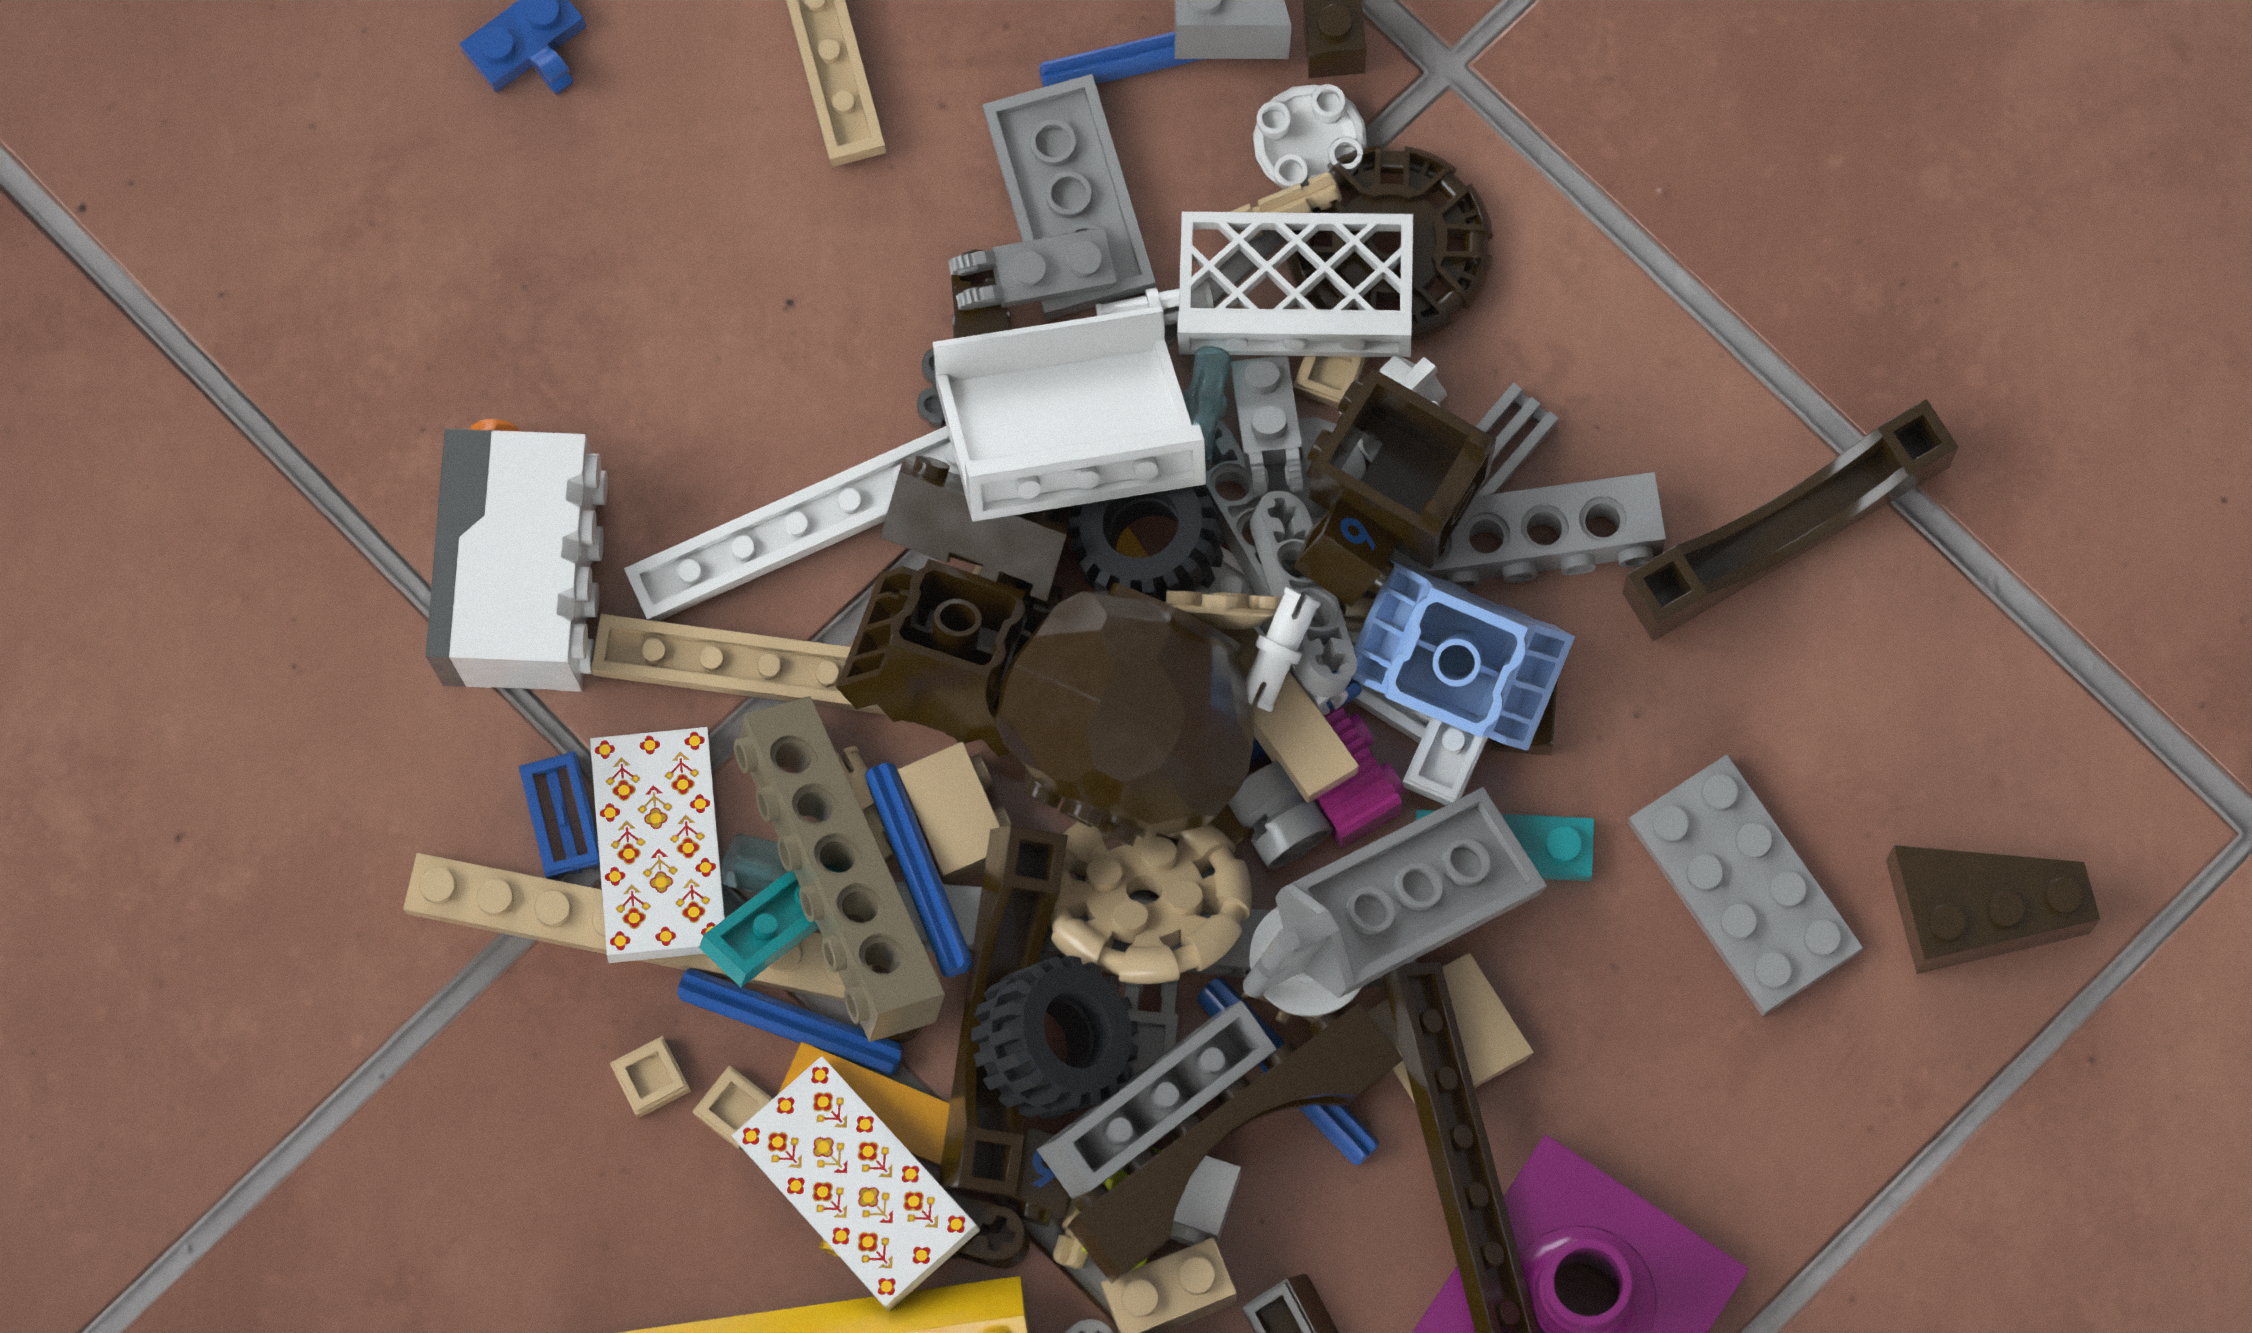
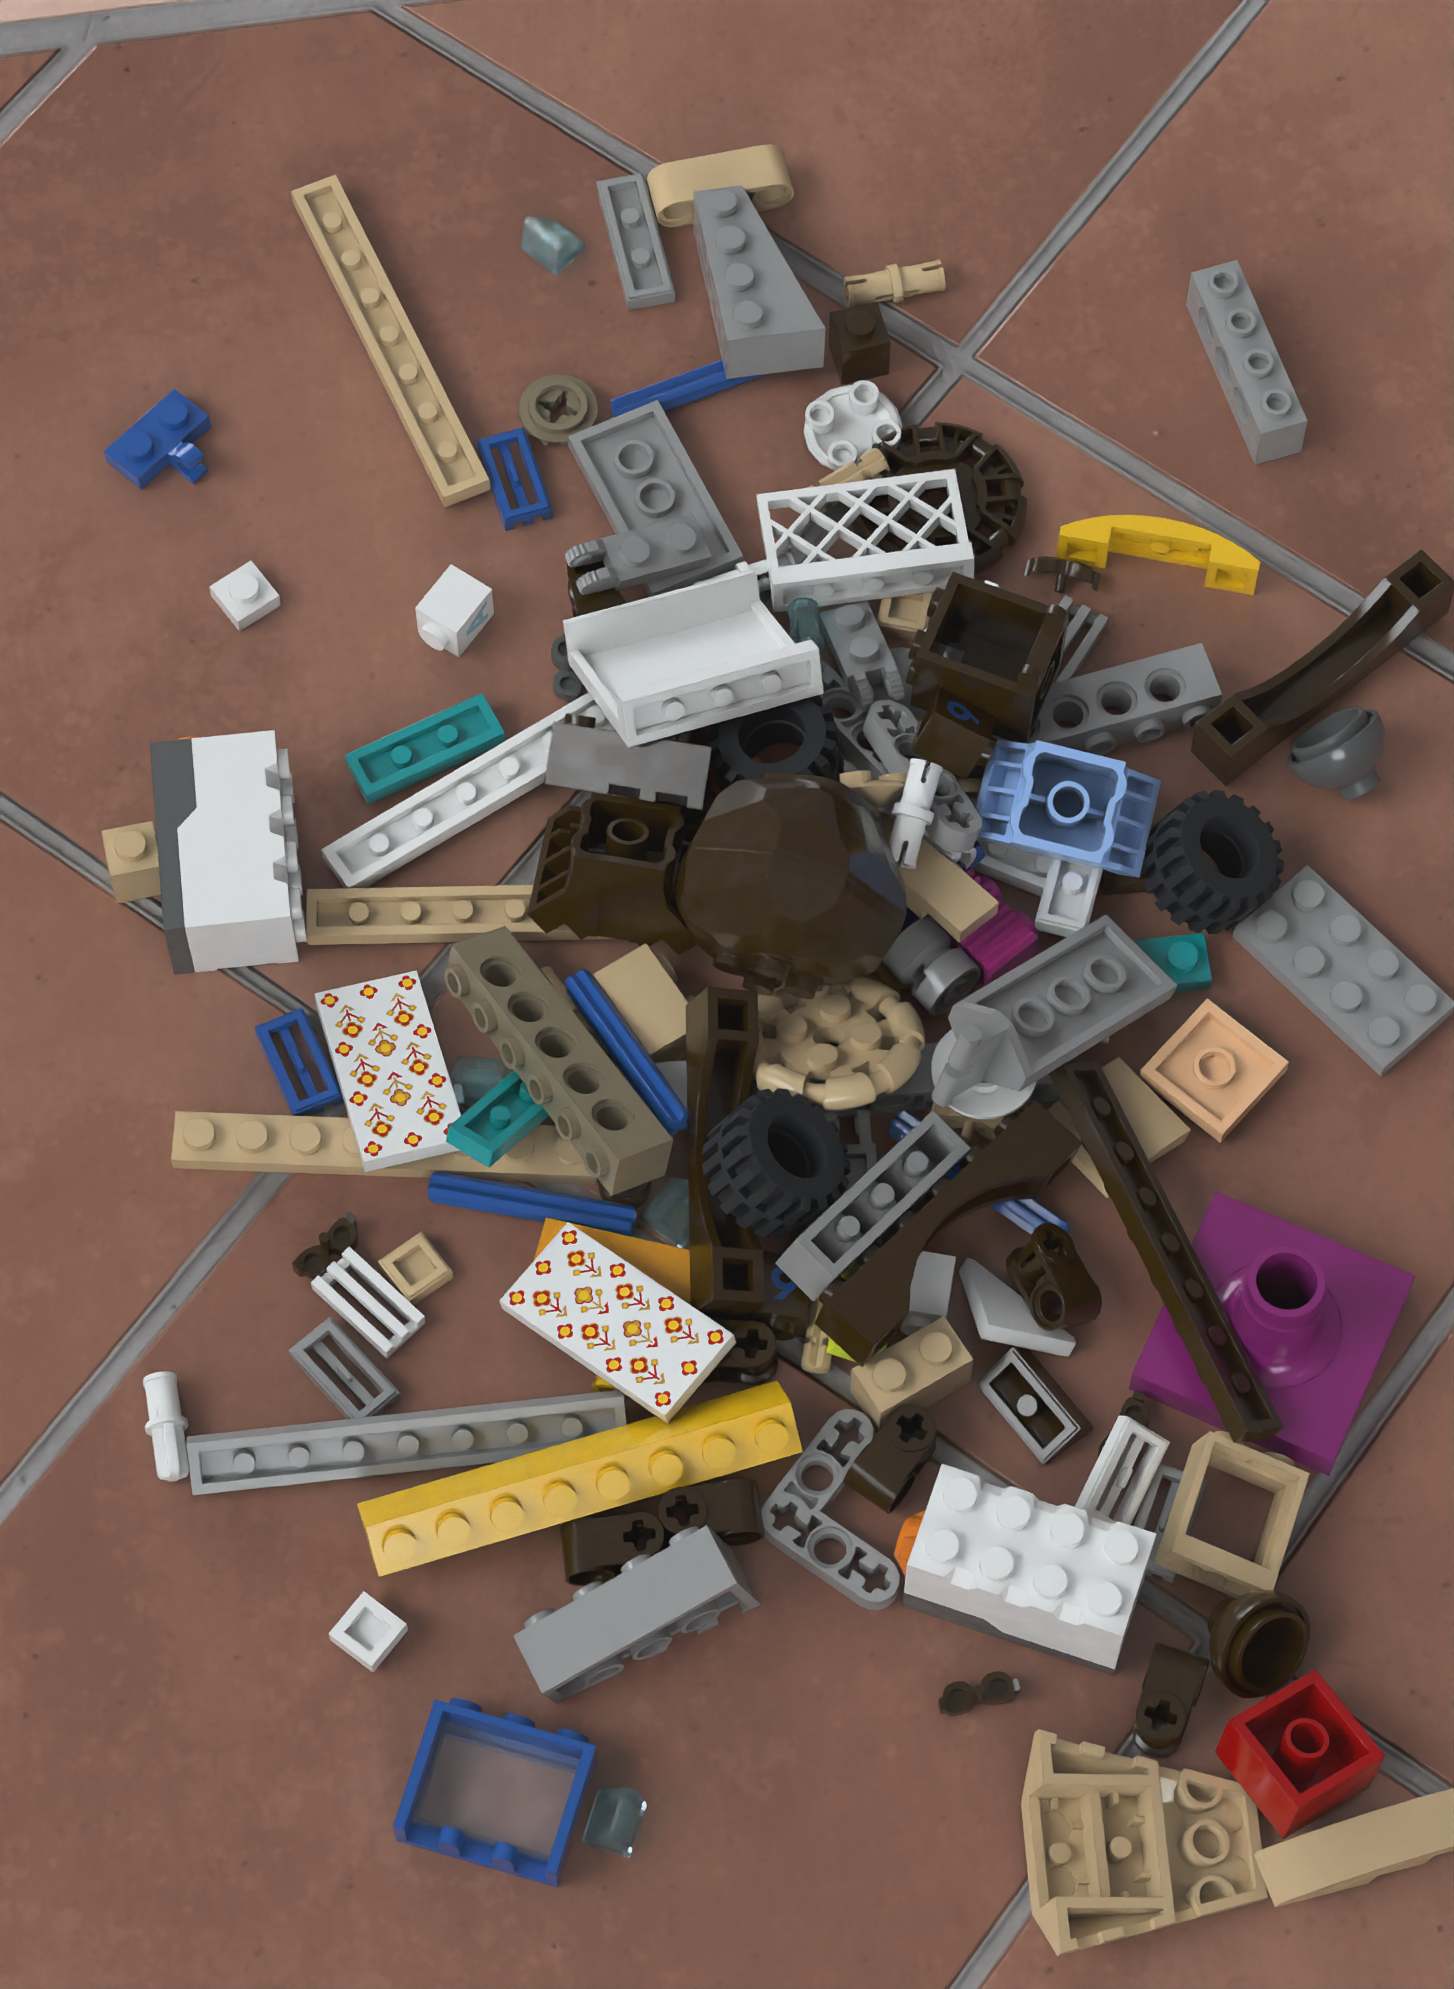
camera: 15 degrees left, 10 degrees down
(351, 1217) = (166, 1425): none -> white axle
(408, 550) = (132, 861): none -> tan brick
(563, 1067) = (338, 1273): none -> white tile
(573, 1028) = (338, 1238): none -> dark brown piece
(580, 1229) = (372, 1406): none -> light grey tile
(590, 242) = (245, 595): none -> white plate
(597, 1278) = (395, 1442): none -> light grey plate
(730, 1104) = (489, 1282): tan tile -> none
(760, 461) = (424, 748): none -> teal plate
(818, 301) = (454, 611): none -> white brick
(922, 187) = (524, 511): none -> blue tile
(937, 1054) = (670, 1212): none -> clear light blue slope
(971, 44) = (549, 394): none -> dark tan gear
(1288, 1239) = (1005, 1315): none -> white tile
(1344, 1212) = (1053, 1282): none -> dark brown piece
(1528, 349) = (1063, 568): none -> dark brown piece
(1558, 320) = (1162, 540): none -> yellow slope
(1573, 984) = (1213, 1070): none -> light nougat plate
(1654, 734) = (1237, 844): none -> black tyre
(1775, 125) = (1246, 362): none -> light grey brick
(1788, 626) = (1340, 752): none -> dark grey piece

